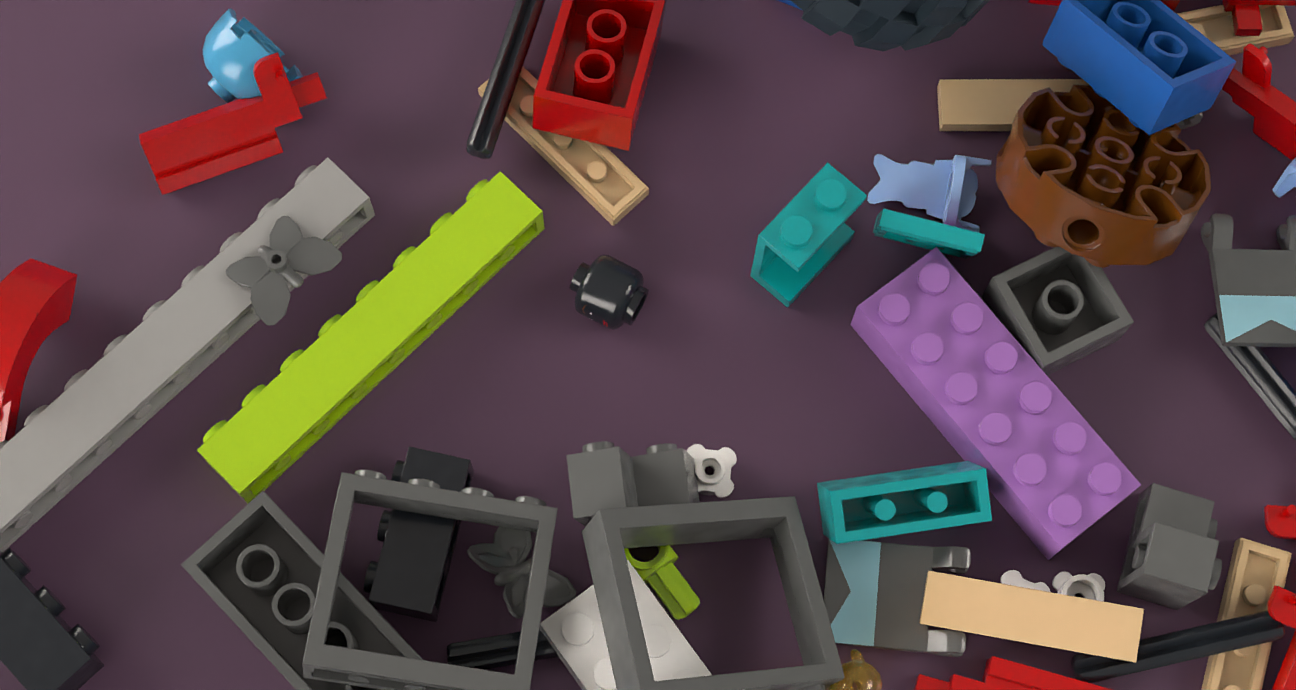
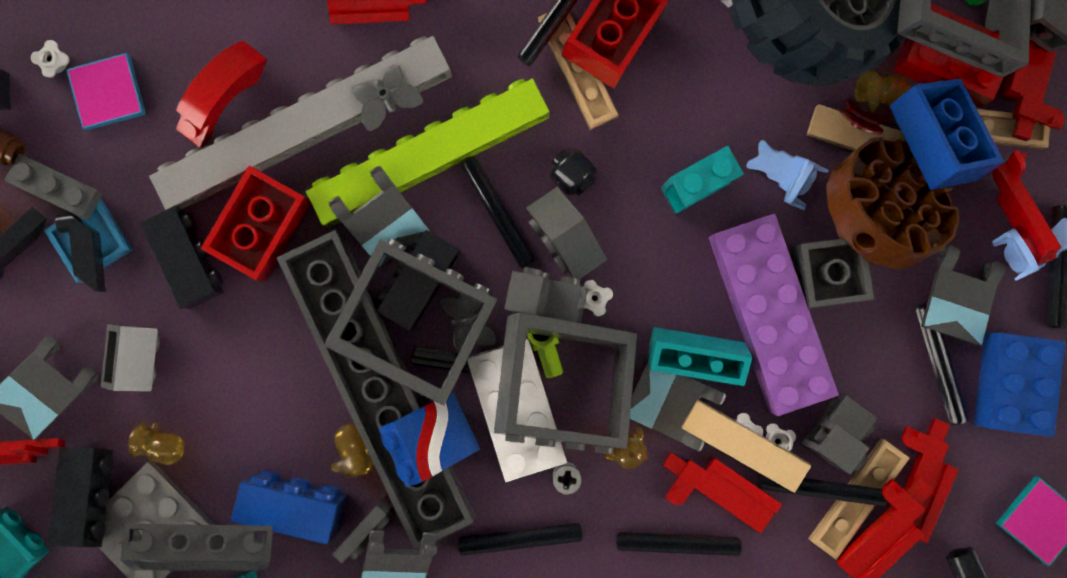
camera: 25 degrees right, 15 degrees up
(132, 528) = (256, 224): none -> red brick
(331, 443) = (382, 217): none -> dark grey flag
(509, 387) = (497, 211): none -> black axle
(631, 380) = (566, 234): none -> dark grey brick
(927, 234) = (773, 203): teal tile -> none
(1010, 80) = (863, 120): none -> dark red piece
(1017, 30) = (883, 89): none -> clear yellow animal

